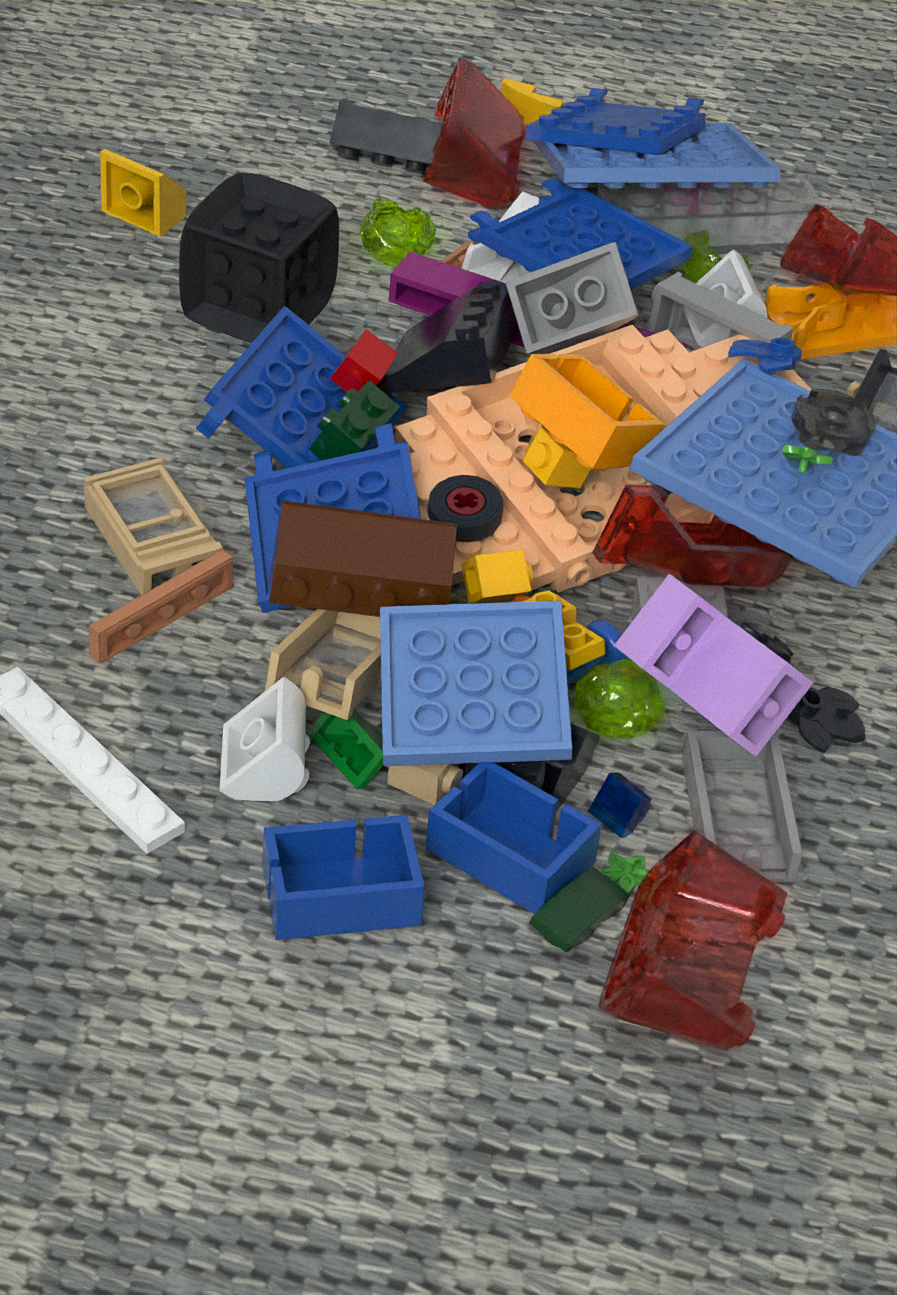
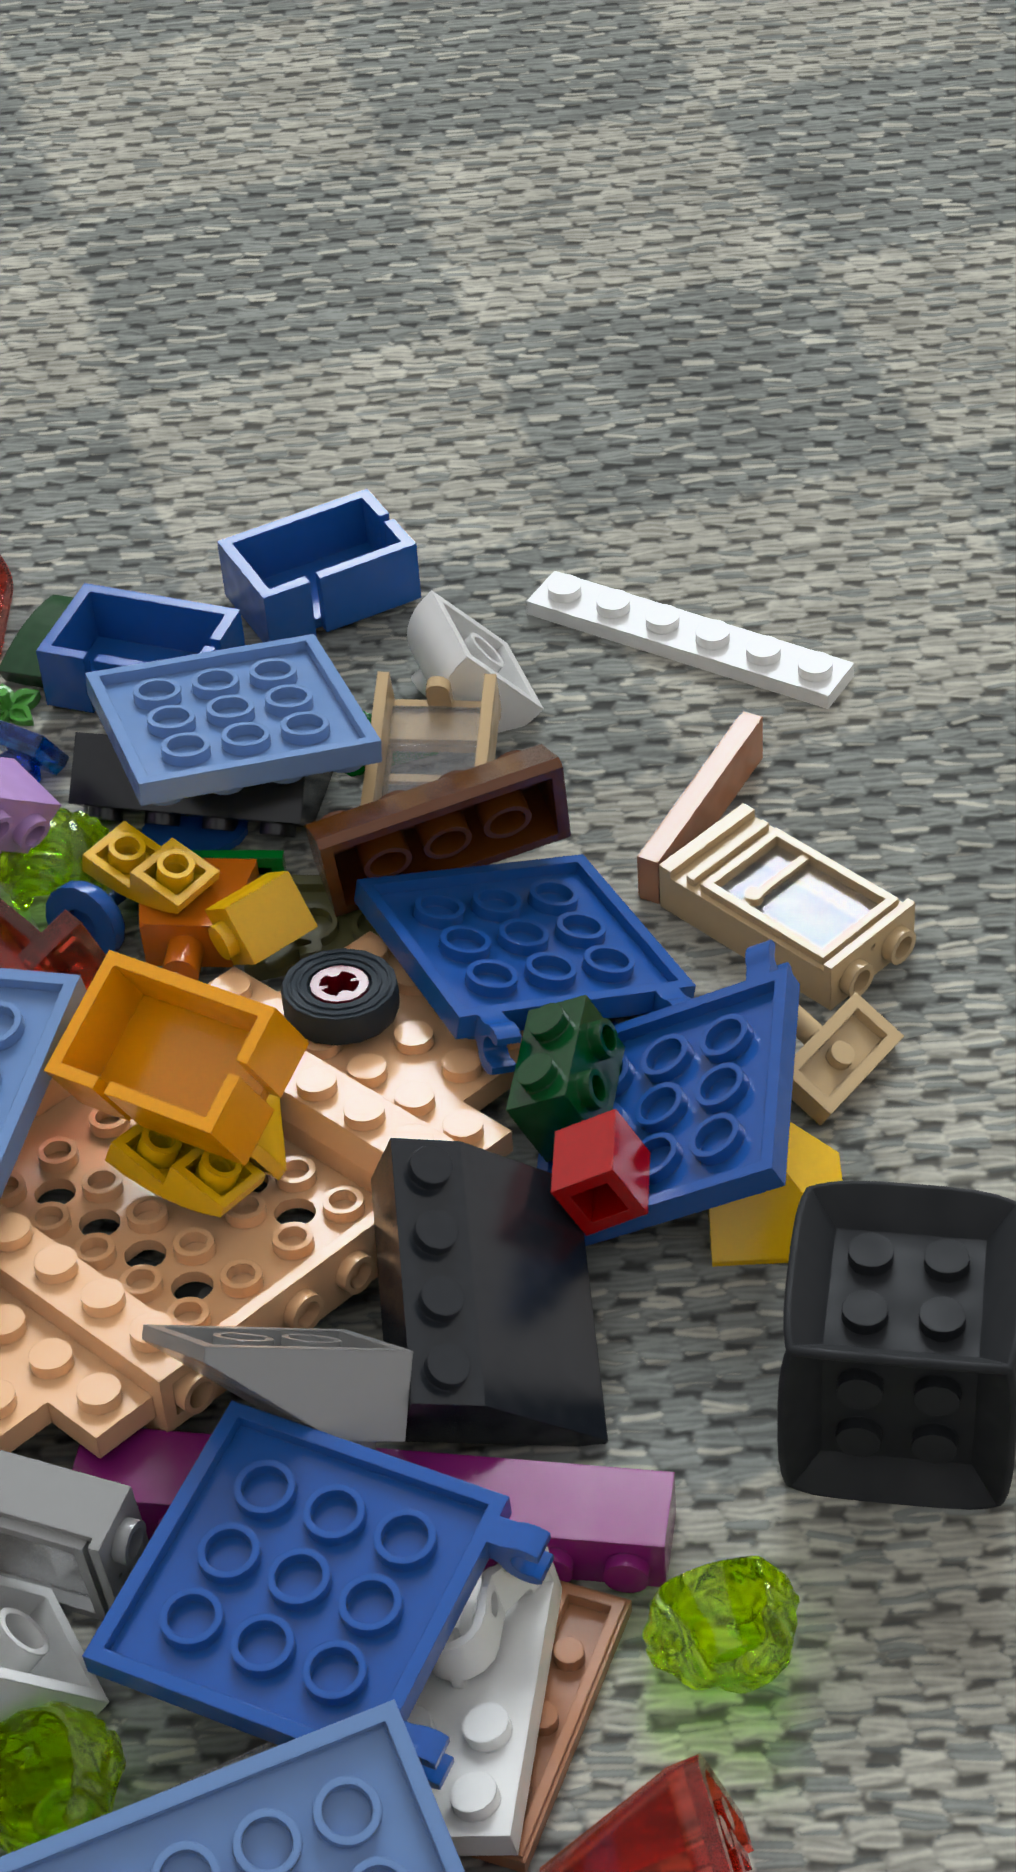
camera: 170 degrees right, 0 degrees up
(182, 440) = (838, 1055): none -> tan plate

